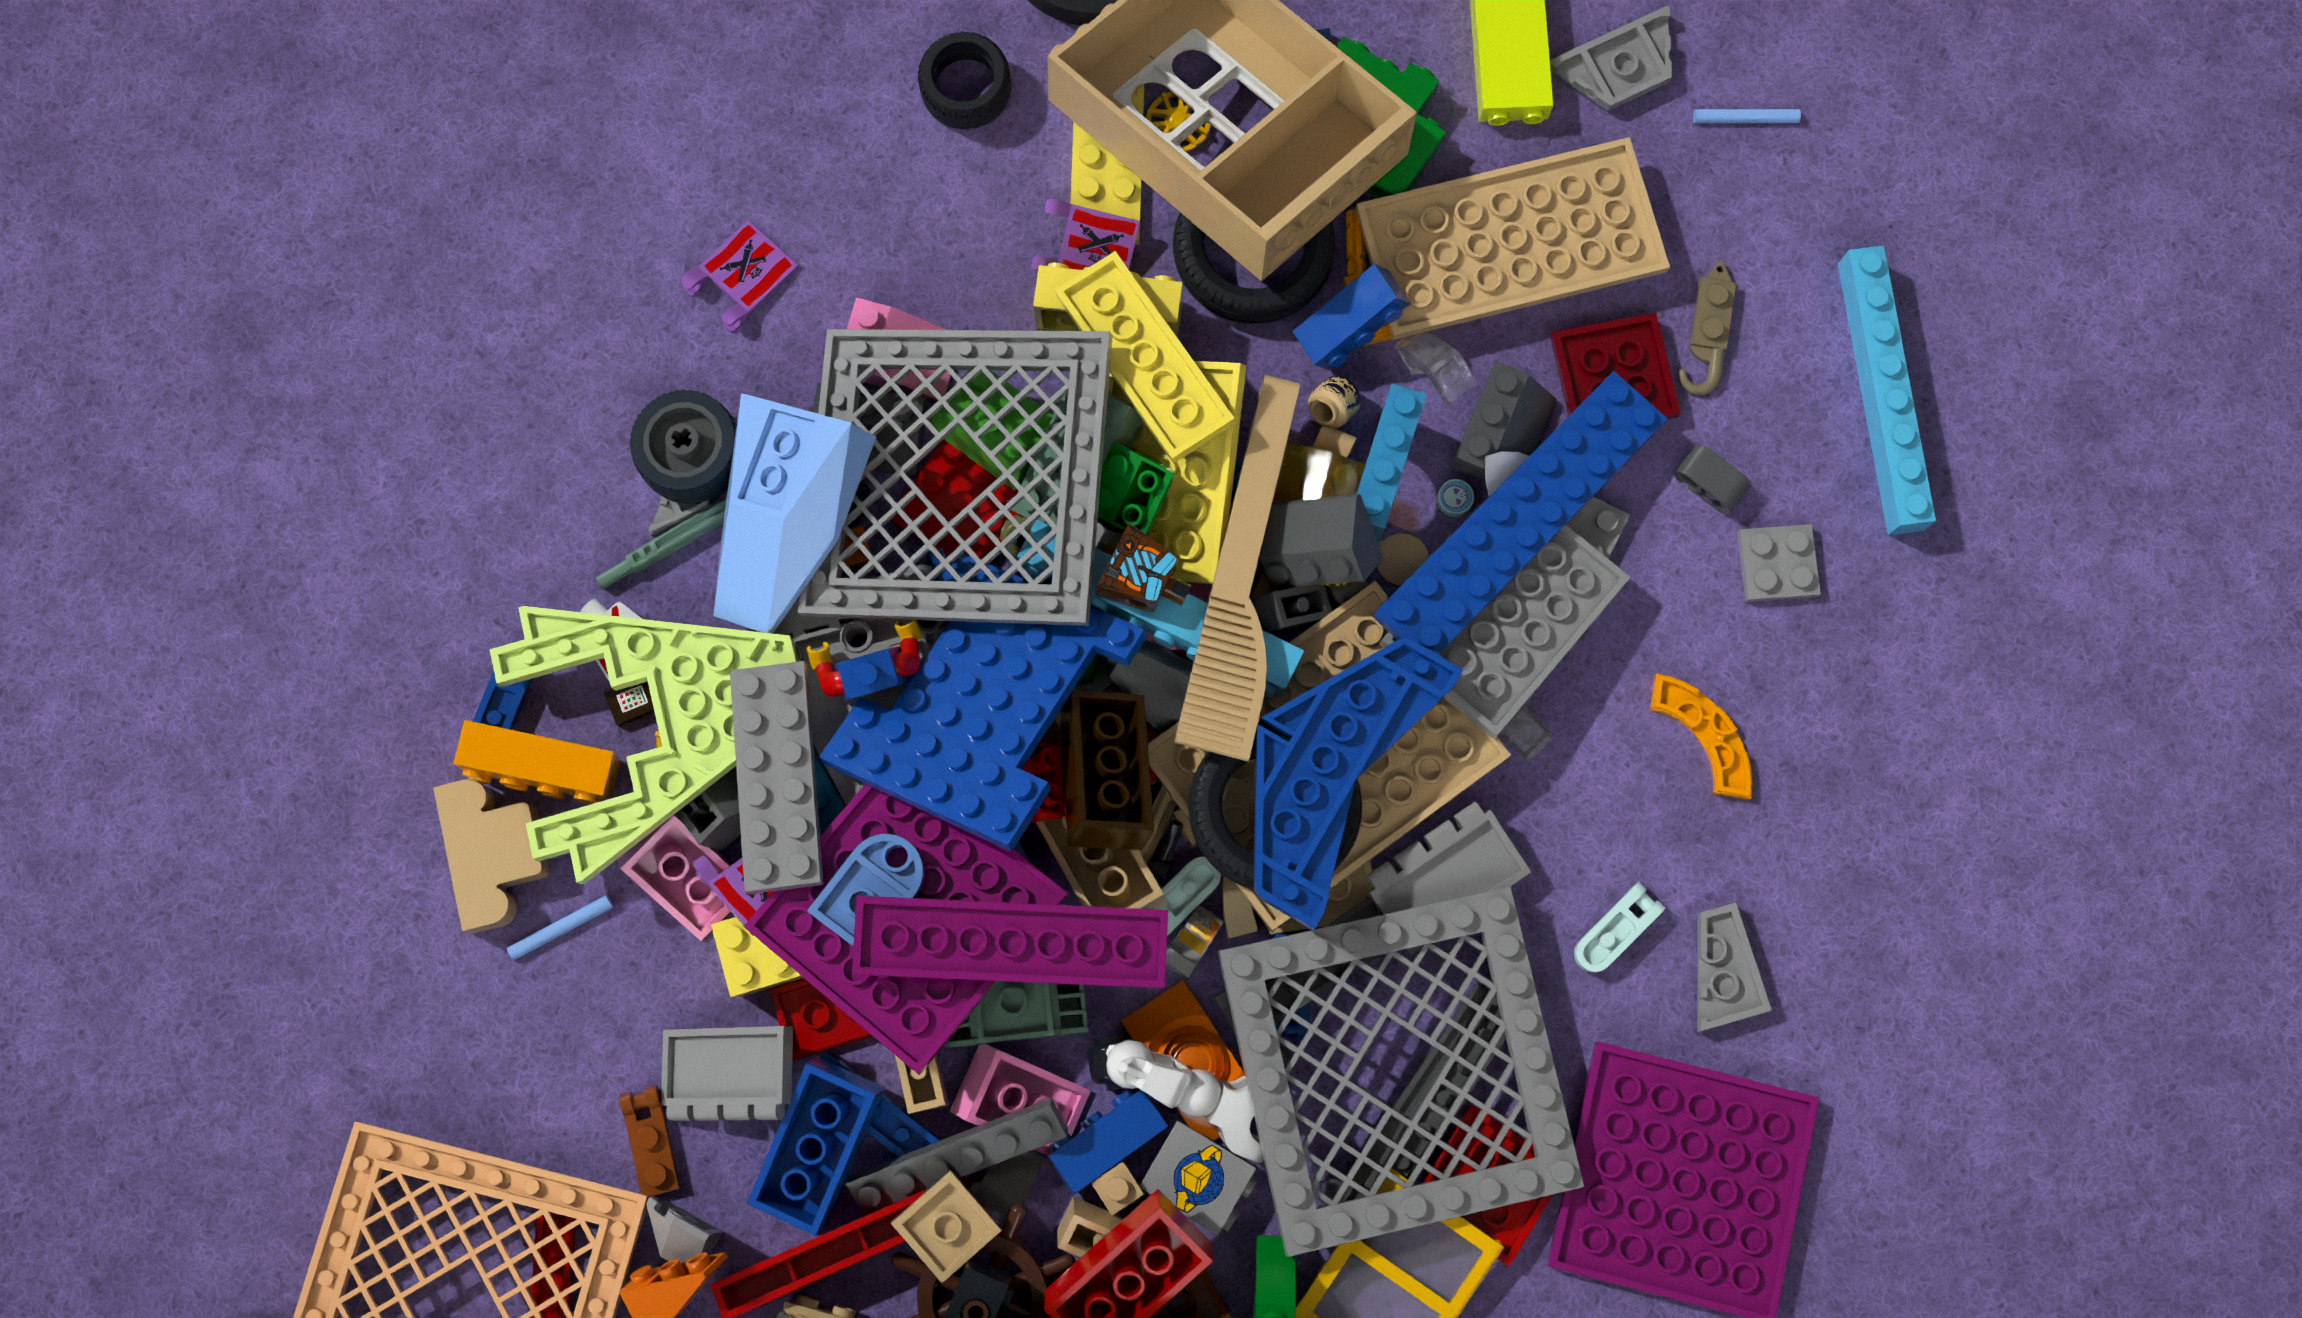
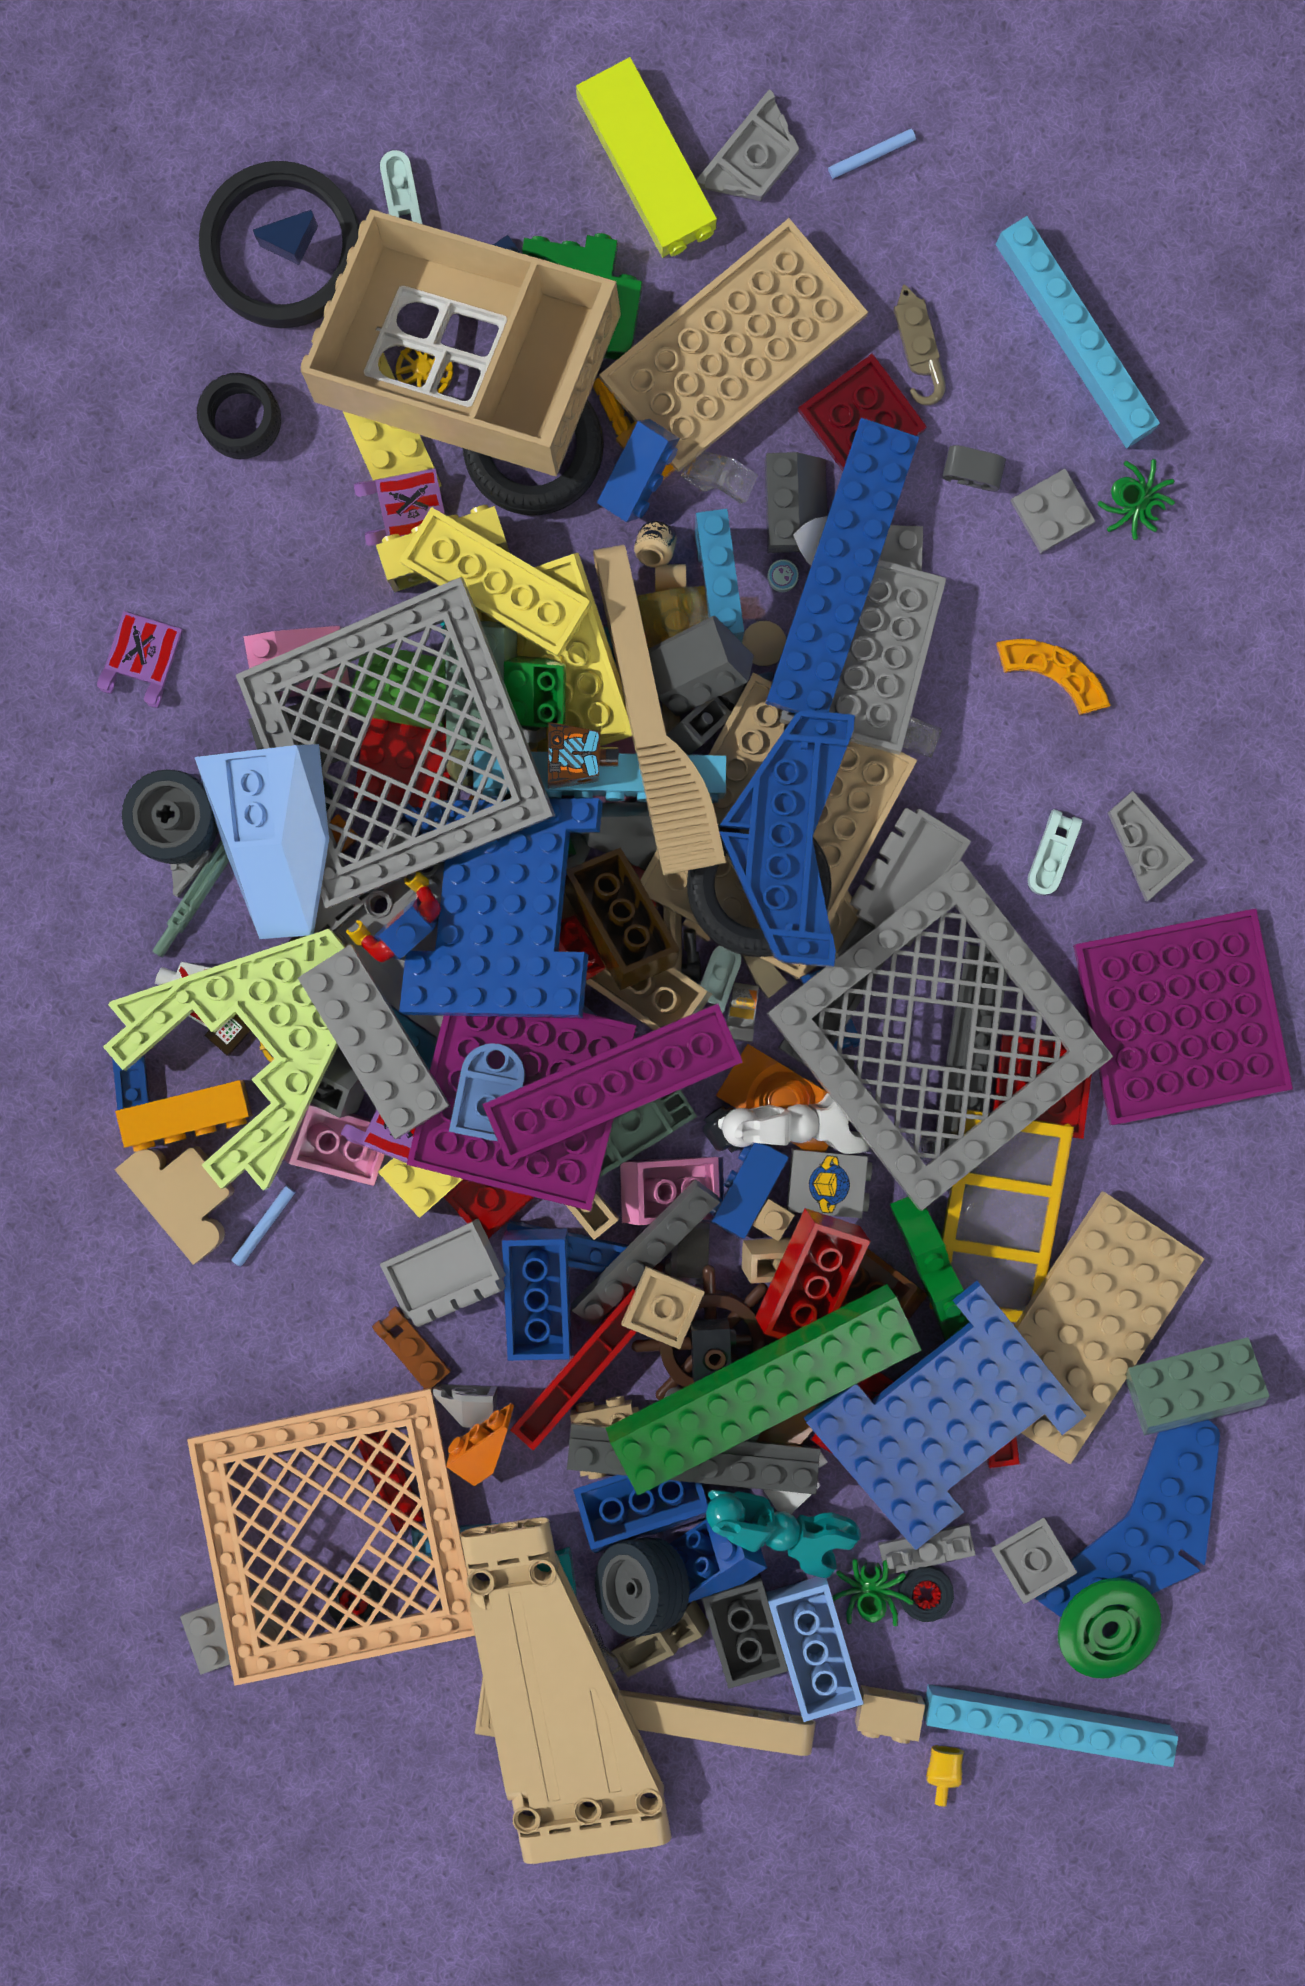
camera: 30 degrees left, 10 degrees up
(1876, 592) = (1137, 499): none -> green animal

